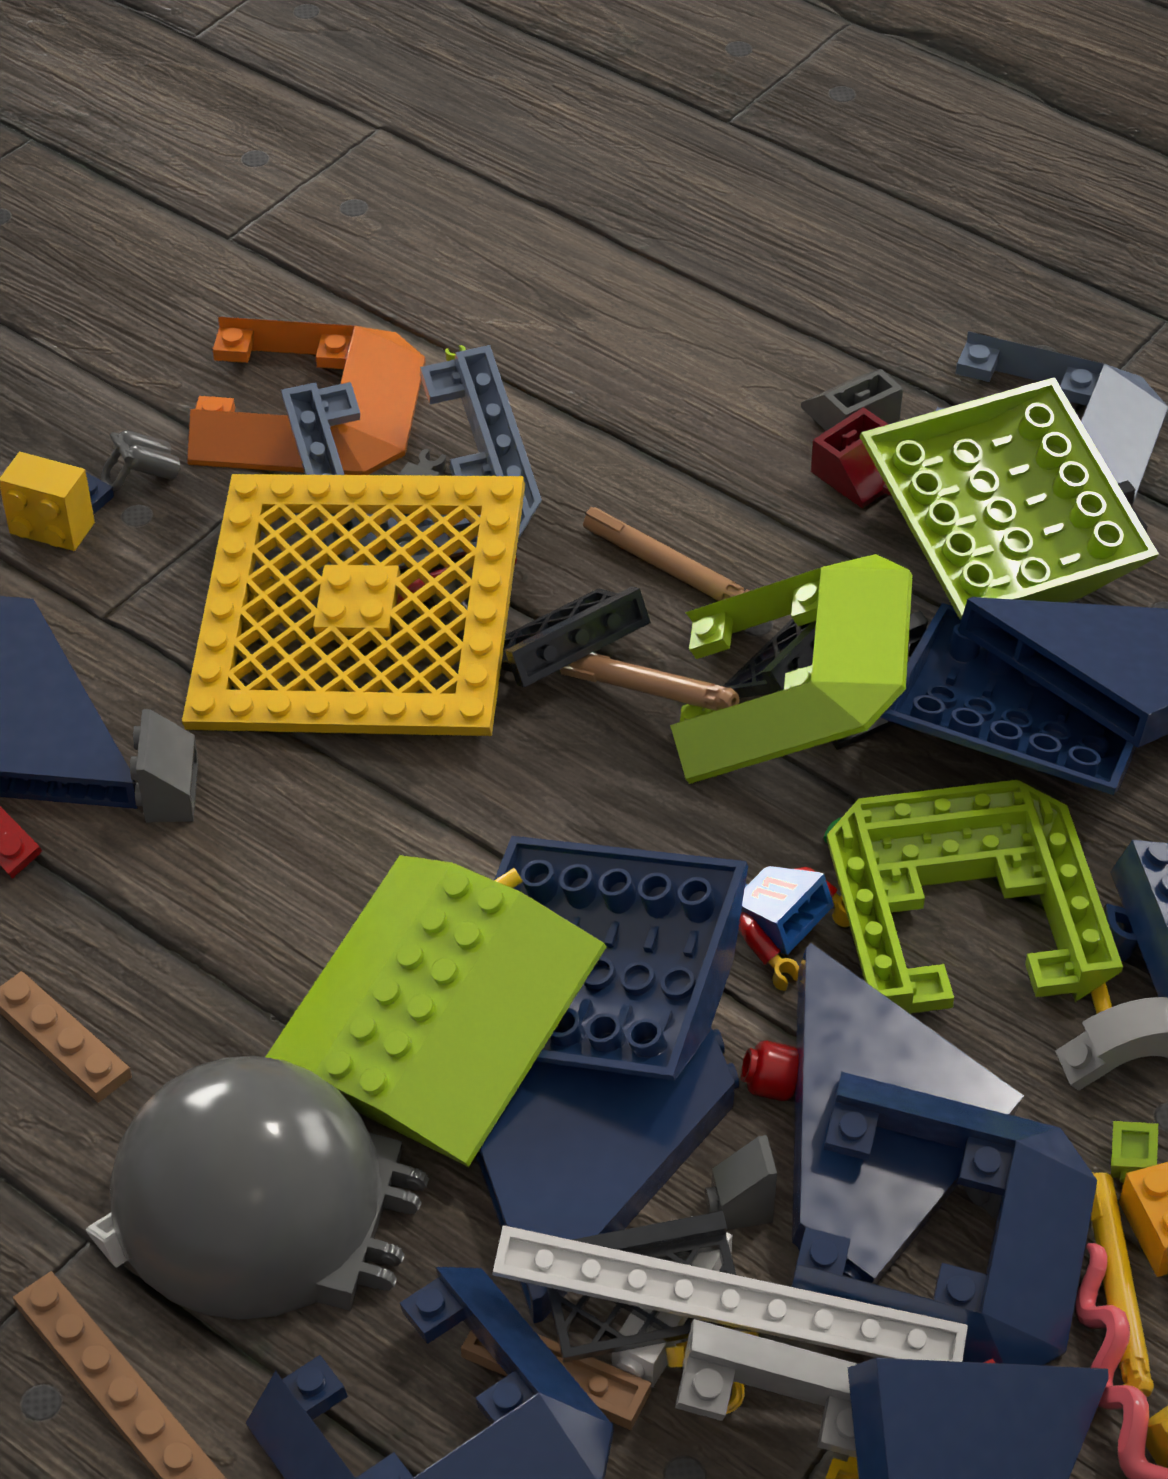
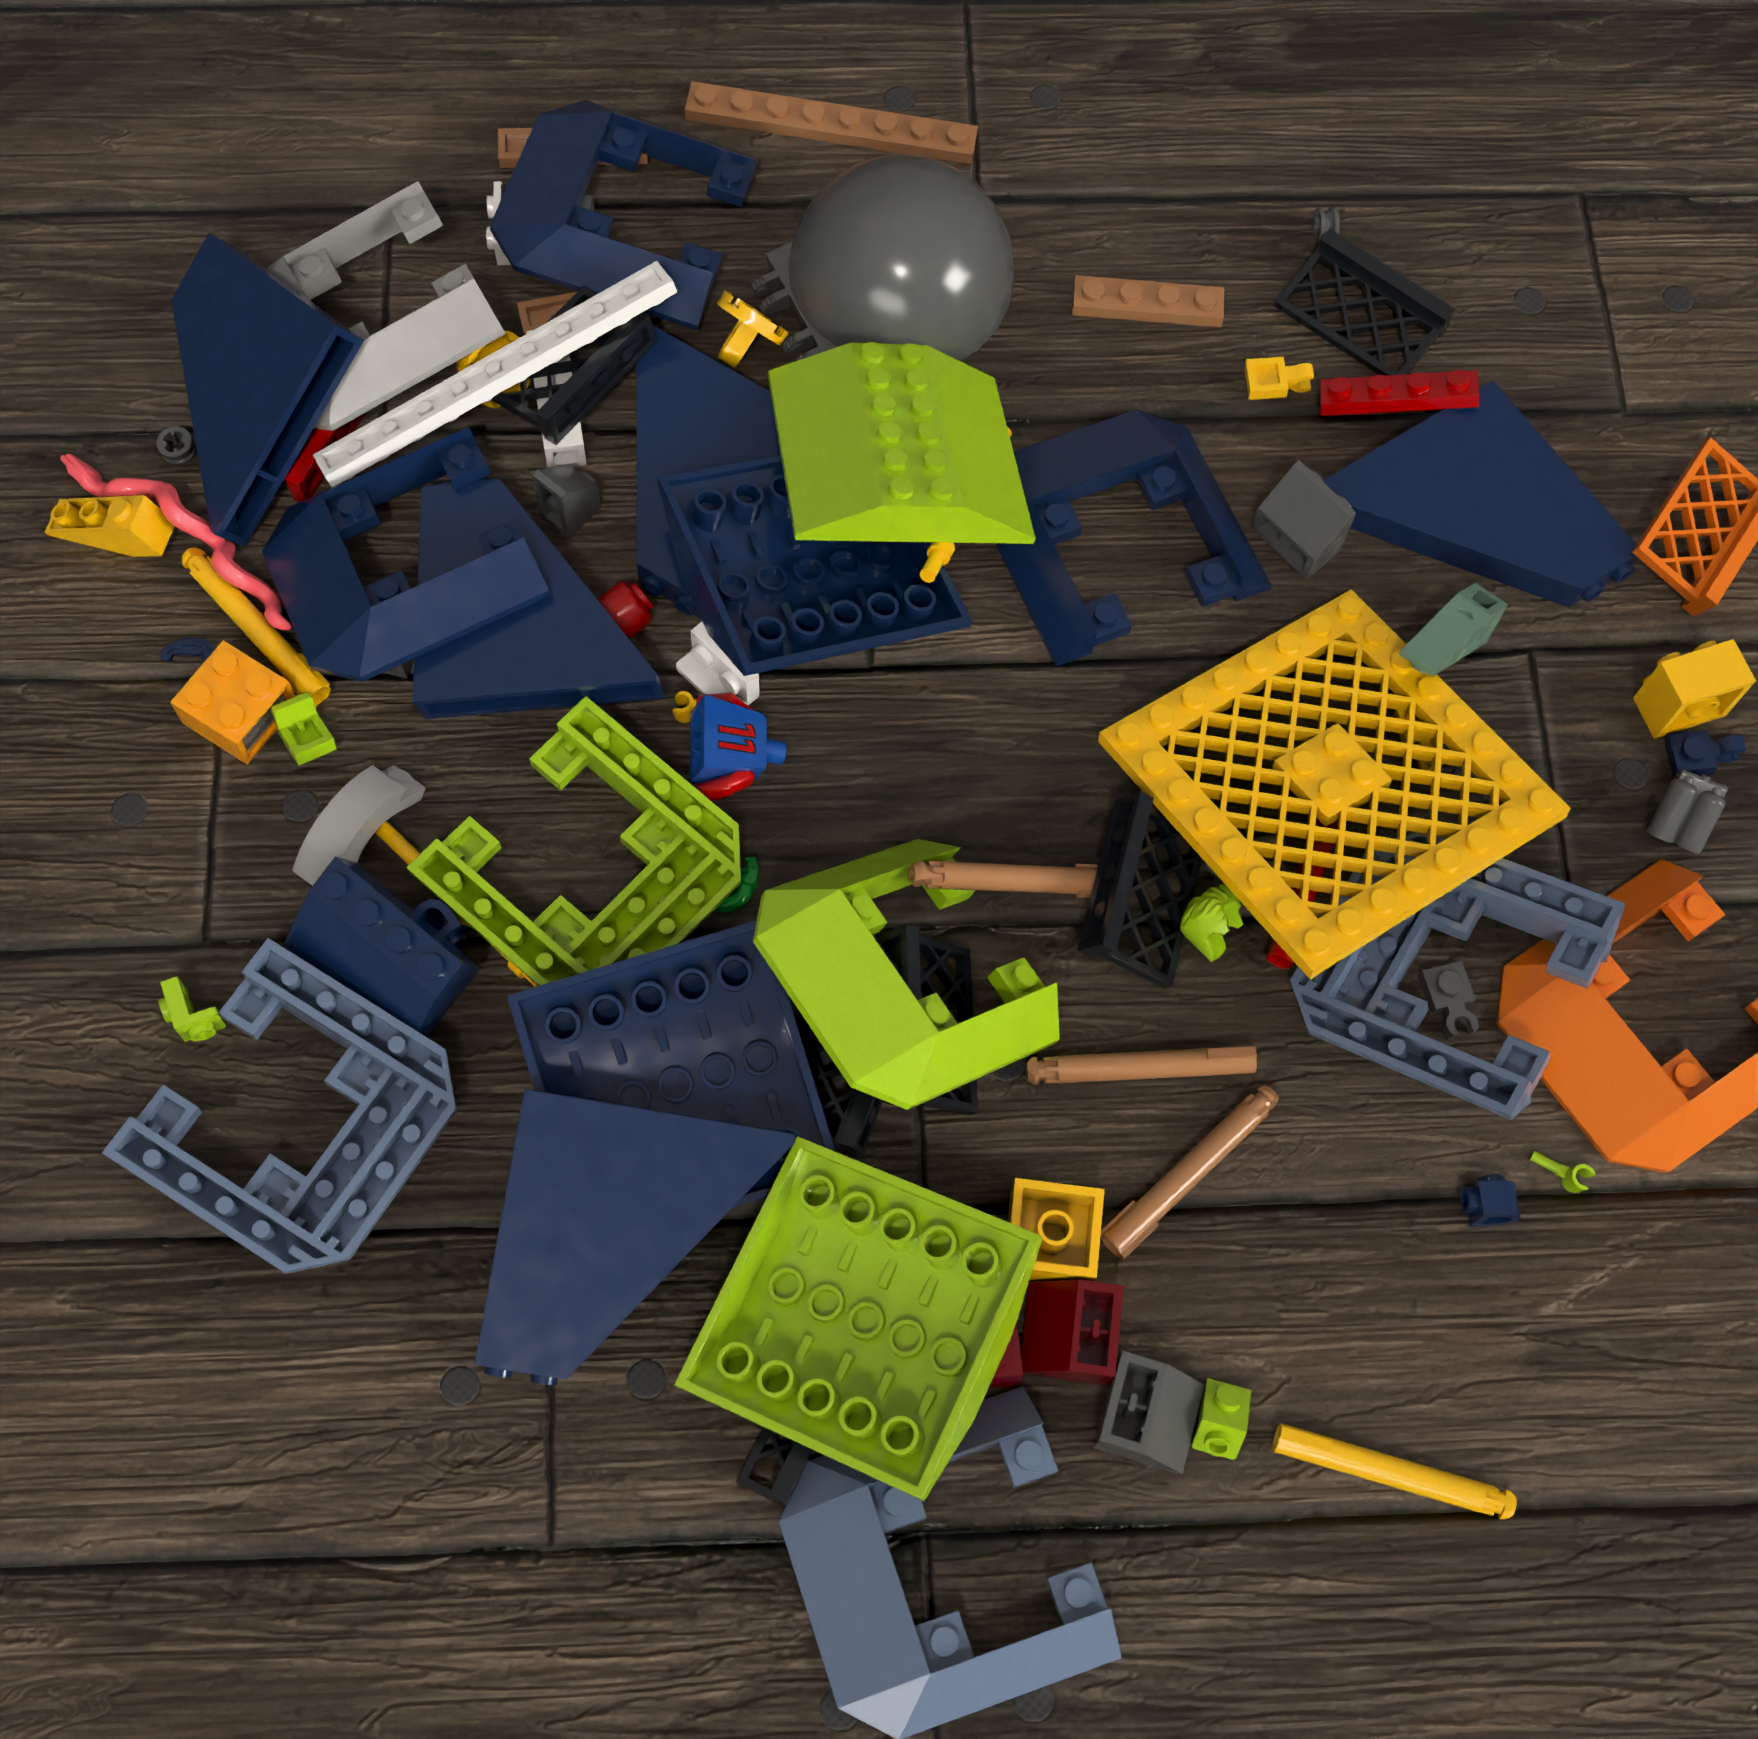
camera: 135 degrees right, 20 degrees up
(43, 900) = (1272, 379): none -> yellow plate
(158, 625) = (1455, 630): none -> sand green slope
(265, 933) = (1094, 459): none -> dark blue slope
(433, 1228) = (748, 325): none -> yellow tile
(526, 373) = (1490, 1201): none -> dark blue plate
(536, 590) = (1209, 920): none -> lime hair
(730, 314) = (1393, 1471): none -> yellow piece
(744, 984) = (713, 671): none -> white bracket
(754, 492) = (1142, 1217): none -> medium nougat piece
(804, 382) = (1222, 1419): none -> lime bracket
(826, 503) = (1067, 1221): none -> yellow brick

